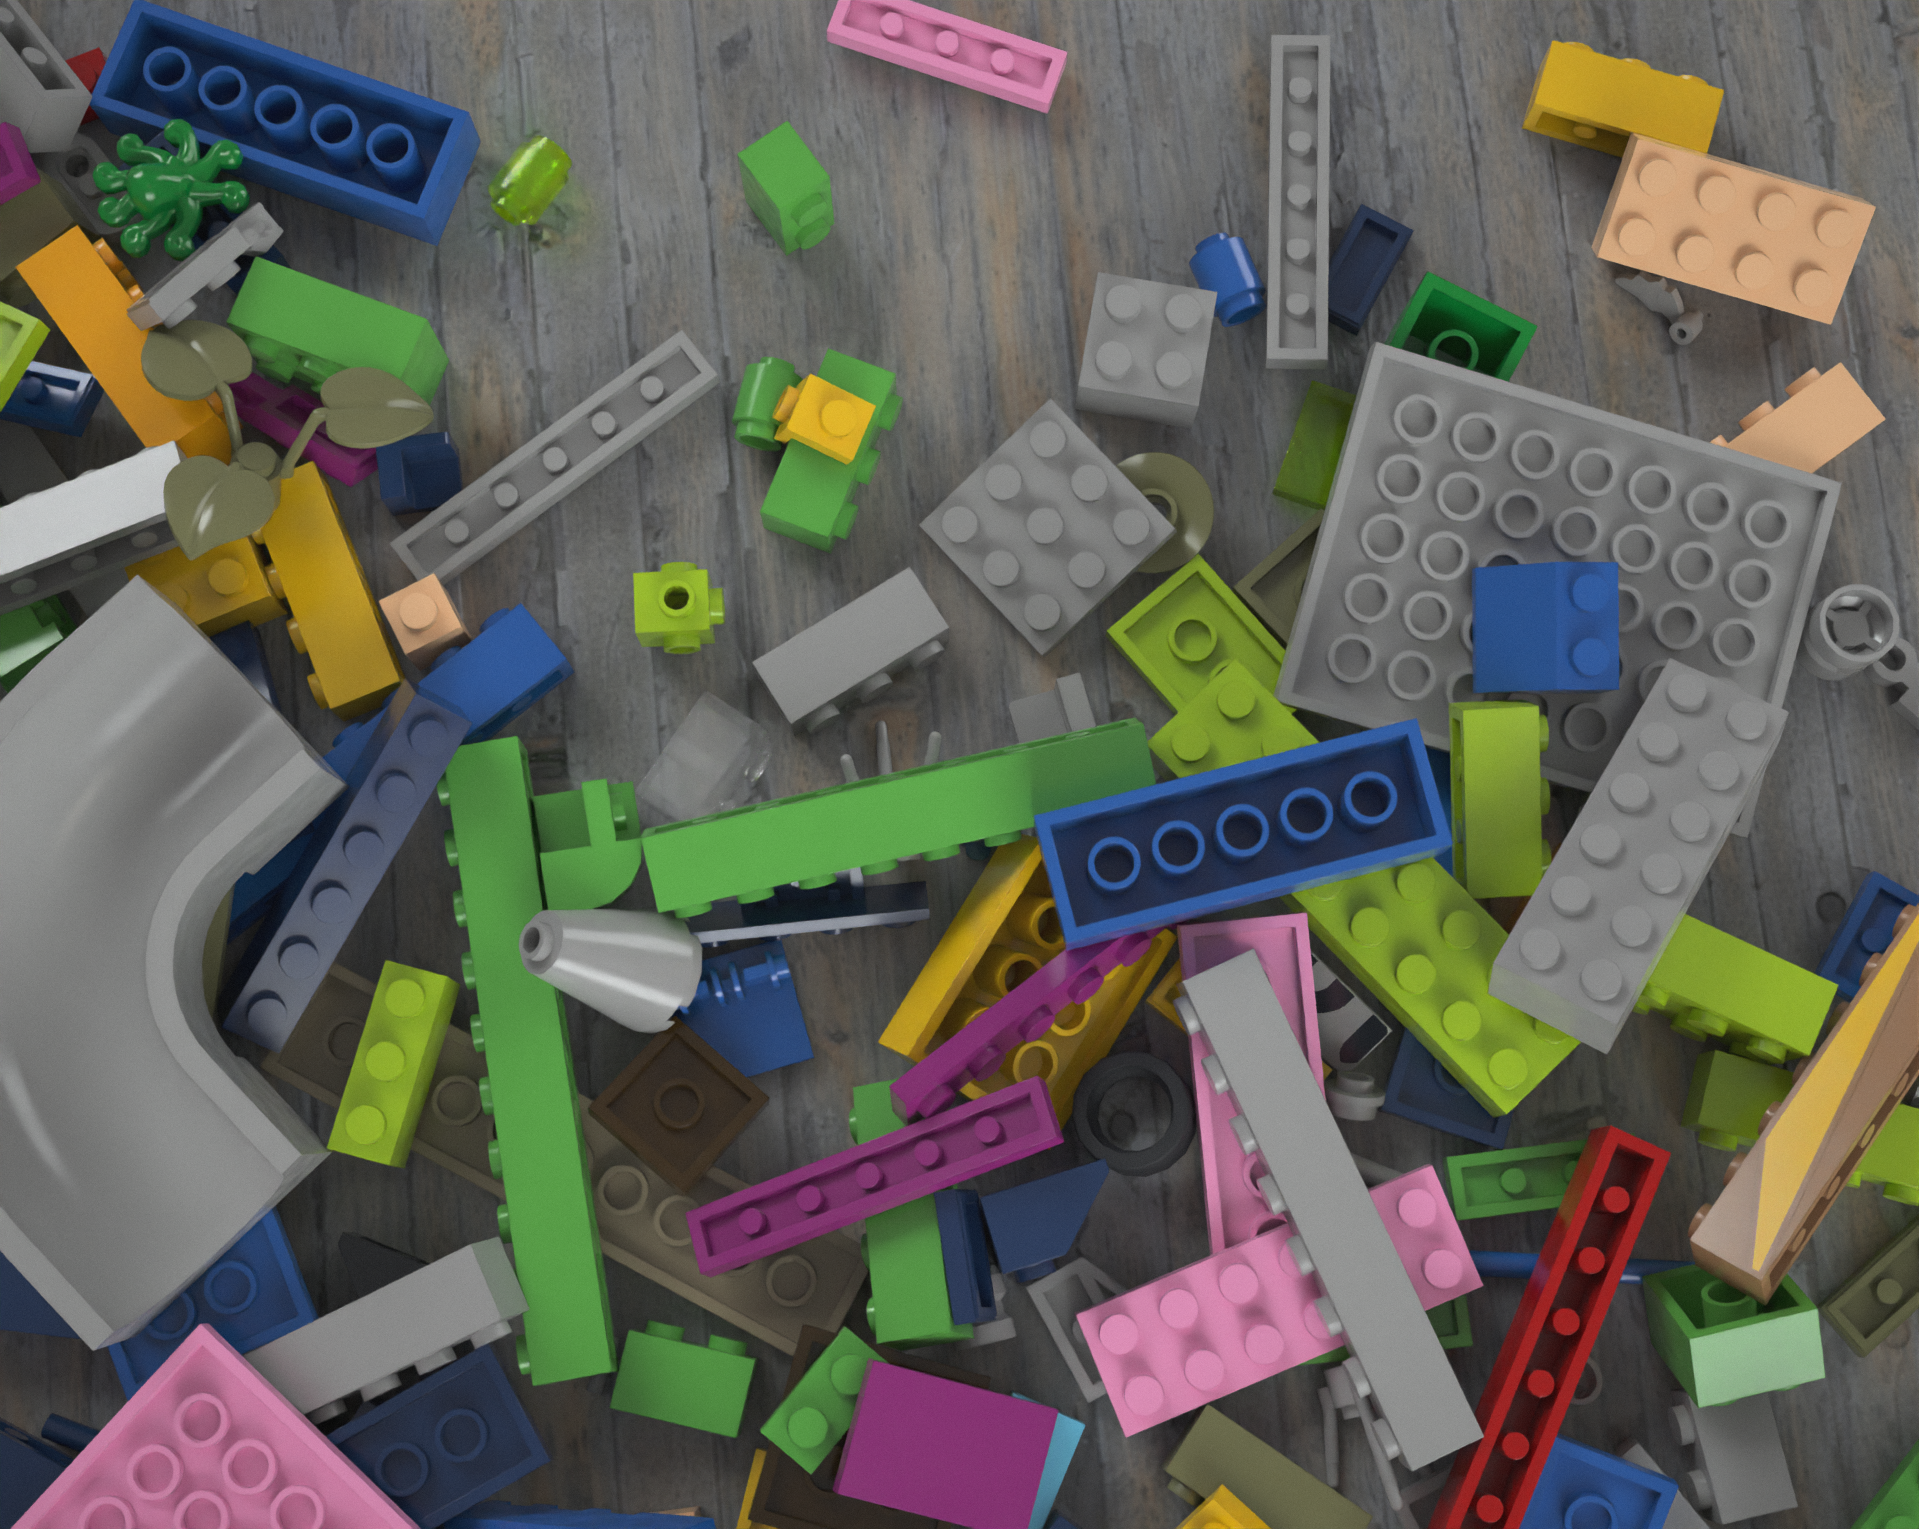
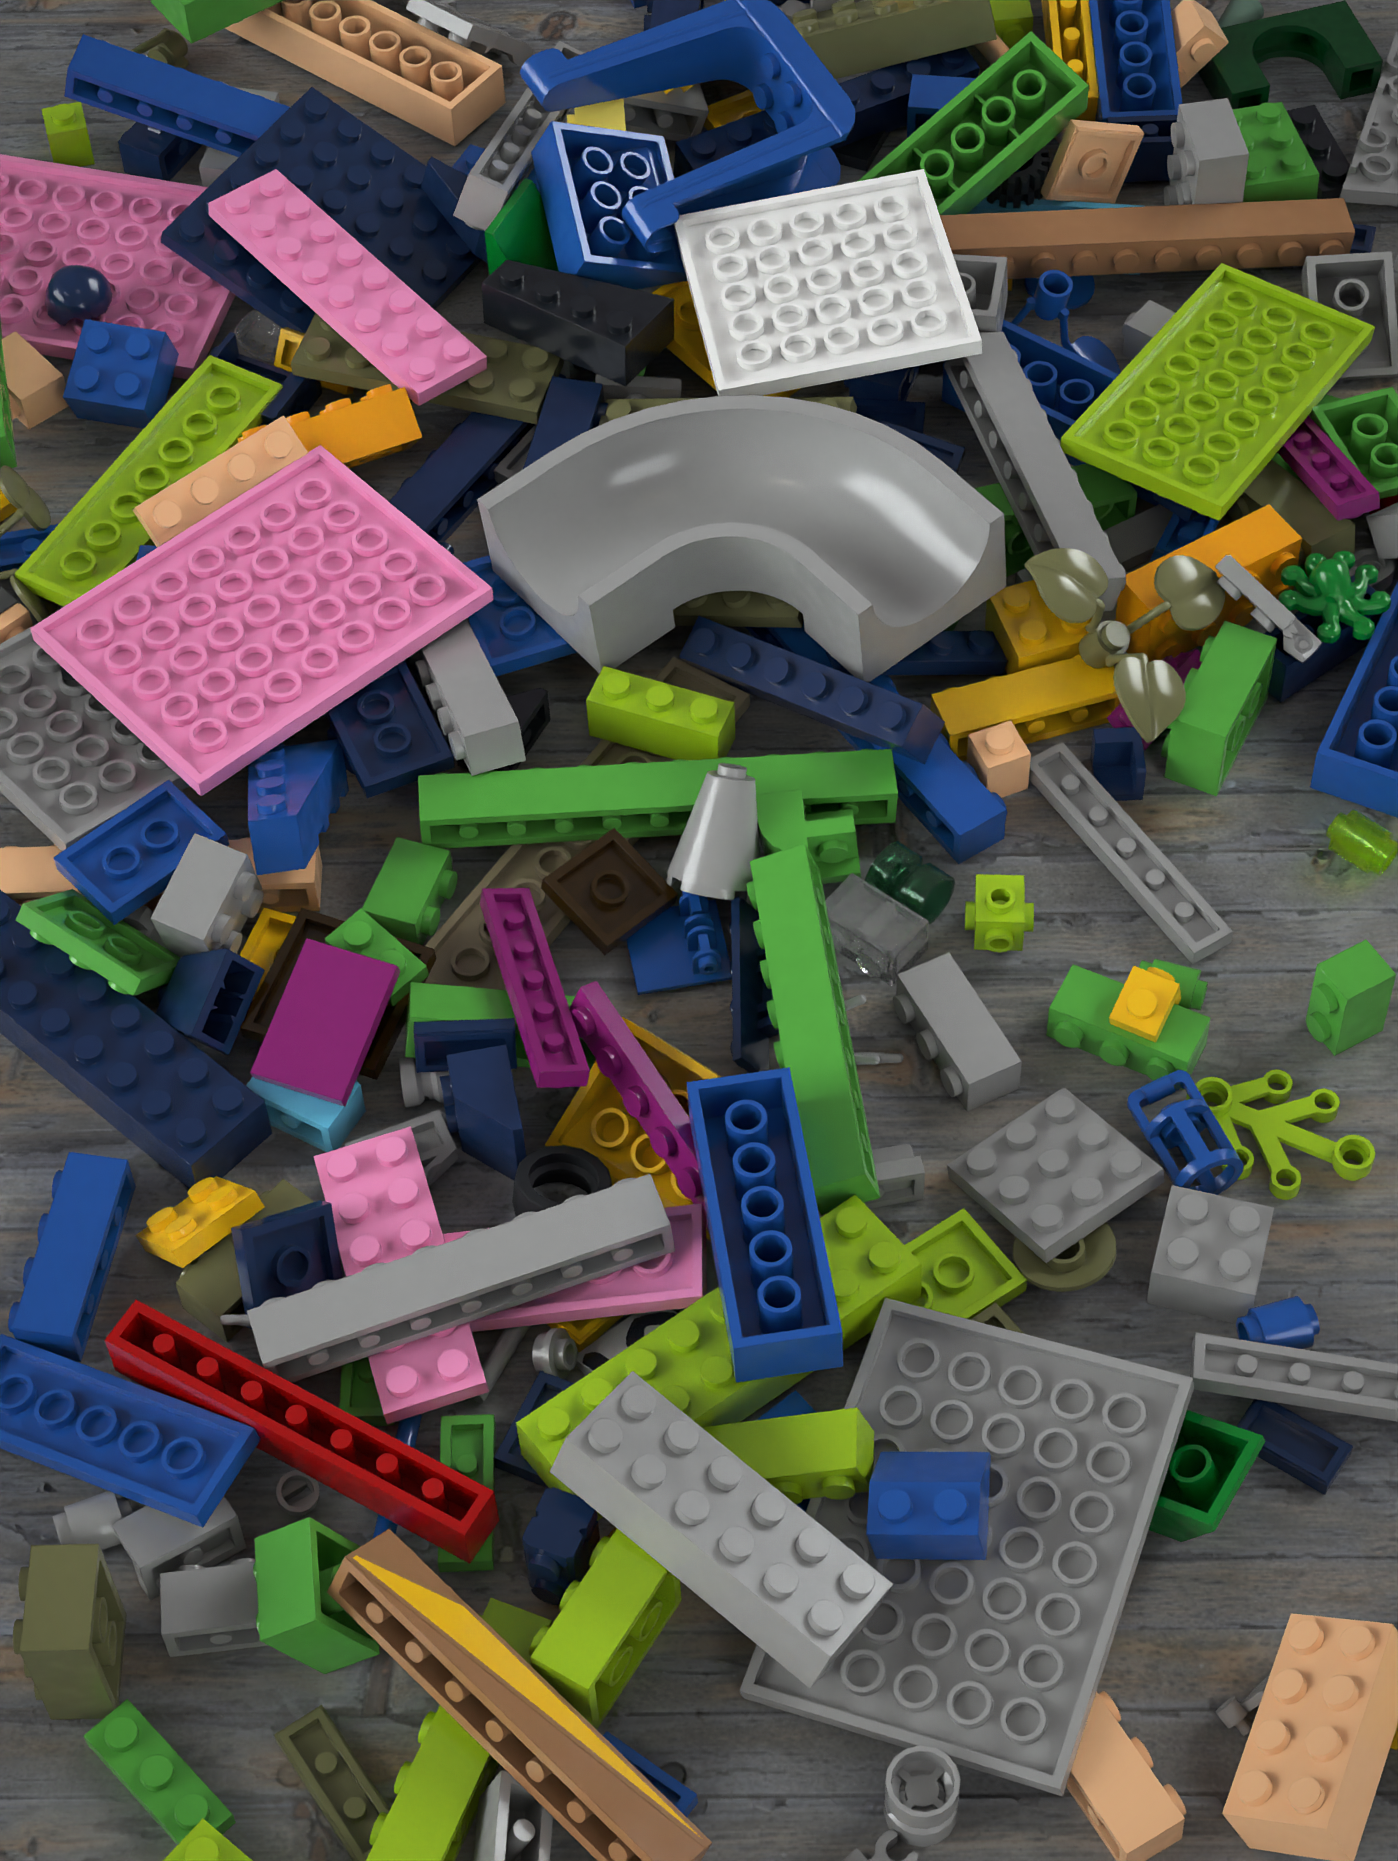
camera: 100 degrees right, 25 degrees down
(649, 705) = (906, 879): none -> clear green wheel
(951, 291) = (1274, 1126): none -> lime plant
(973, 386) = (1180, 1127): none -> blue piece
(1298, 1438) = (286, 1253): none -> dark blue plate
(1641, 1058) = (559, 1543): none -> dark blue brick

